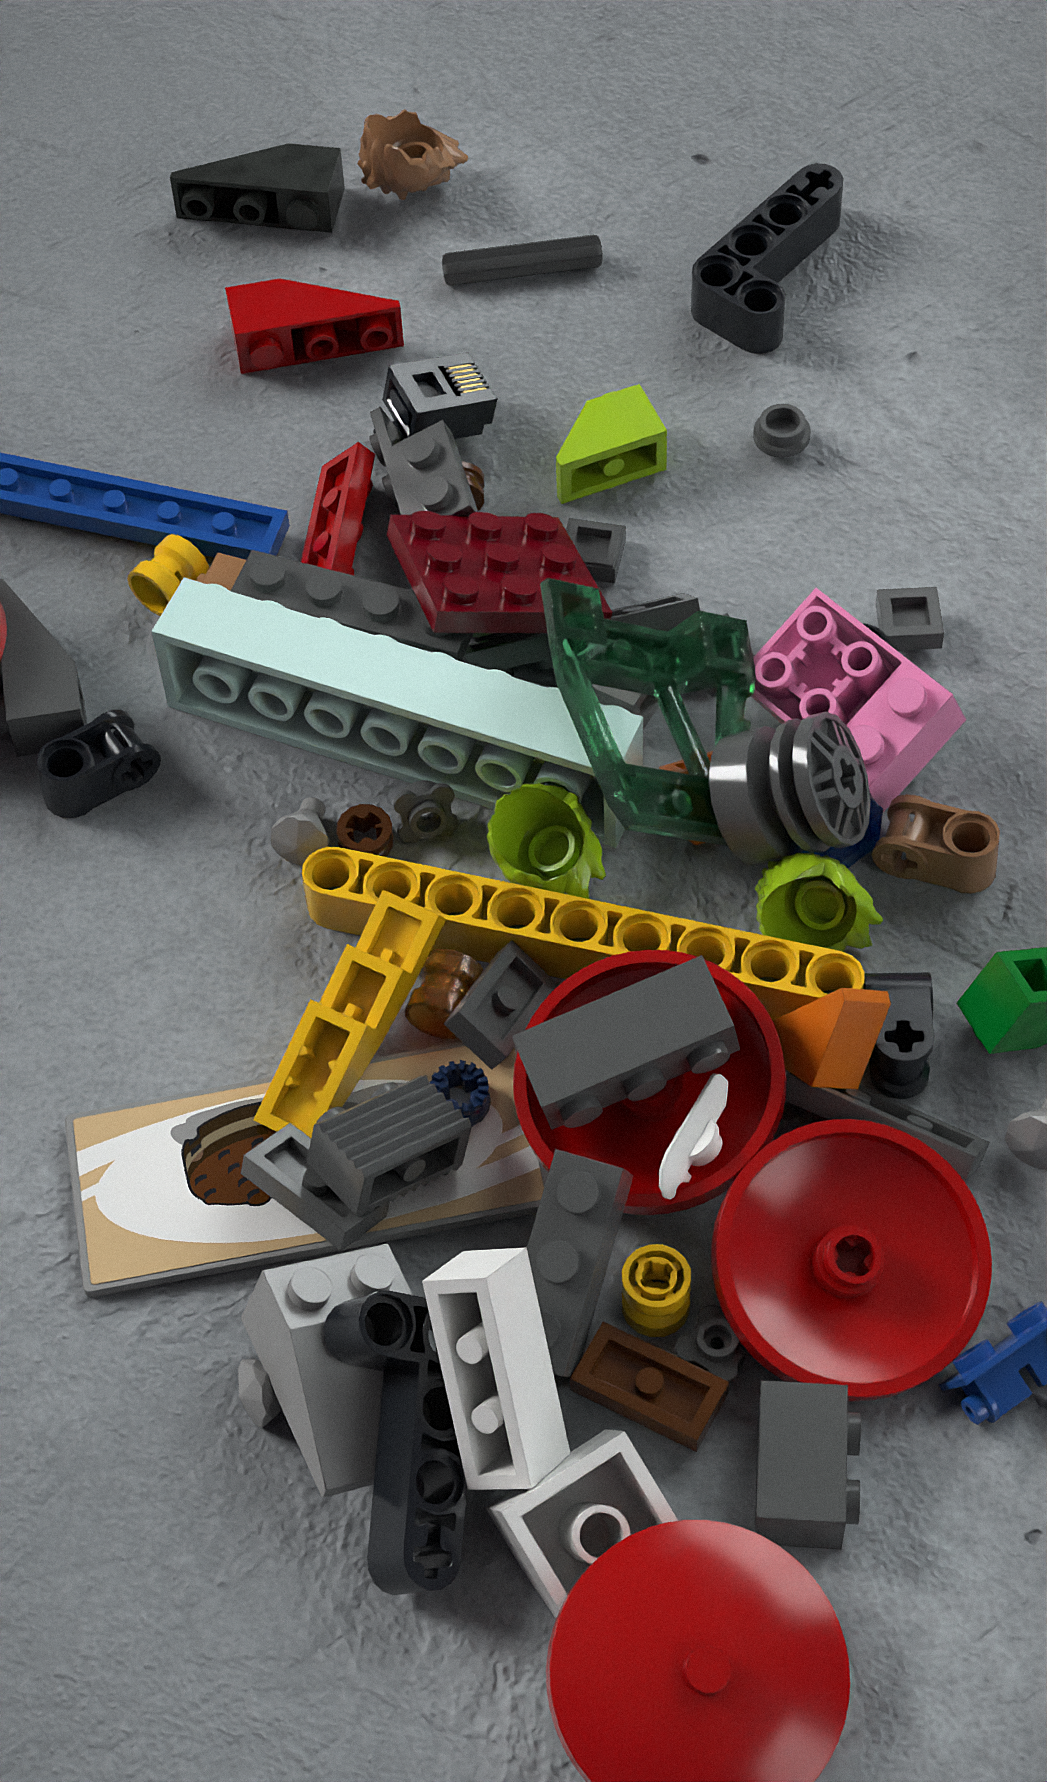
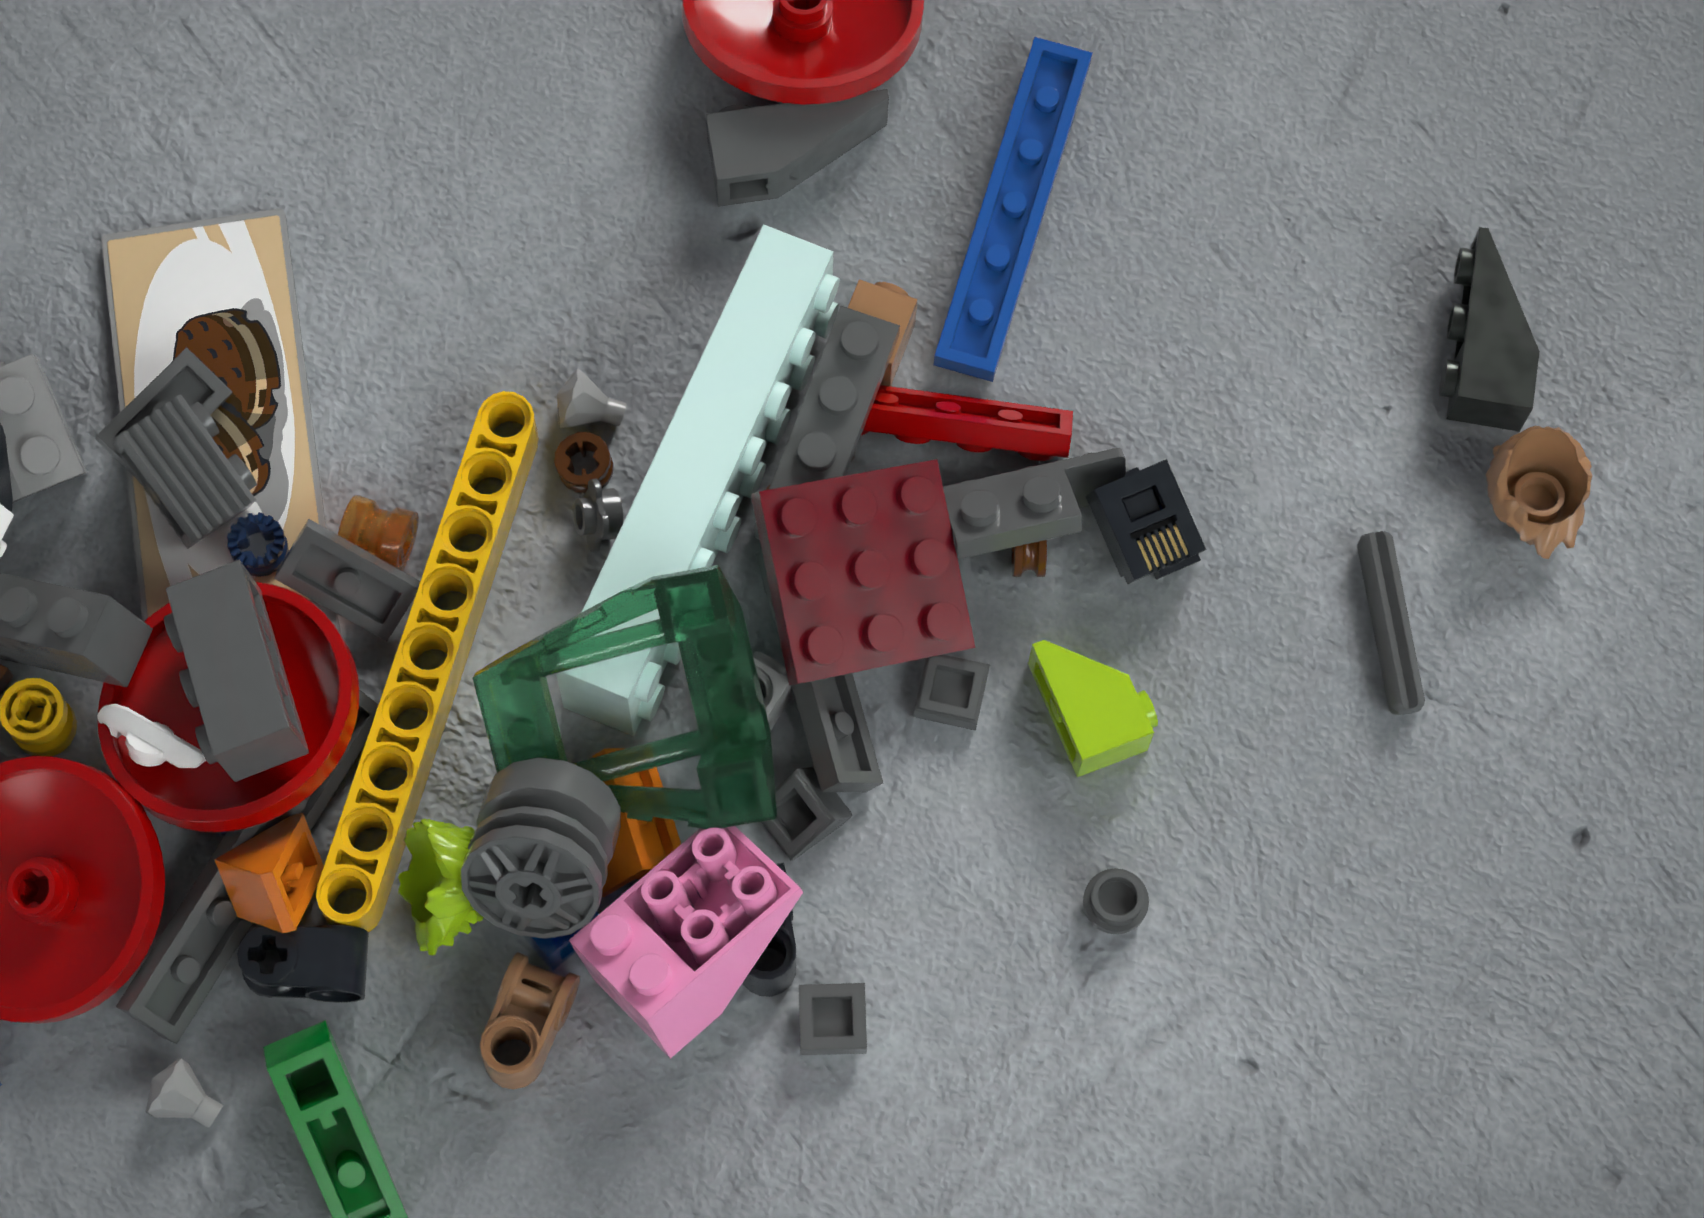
camera: 85 degrees right, 15 degrees up
(94, 765) = (679, 214): black piece -> none
(158, 579) = (912, 261): yellow wheel -> none
(301, 323) = (1273, 360): red slope -> none
(353, 1015) = (342, 443): yellow slope -> none
(545, 840) = (526, 606): lime hair -> none
(739, 276) = (1390, 908): black beam -> none

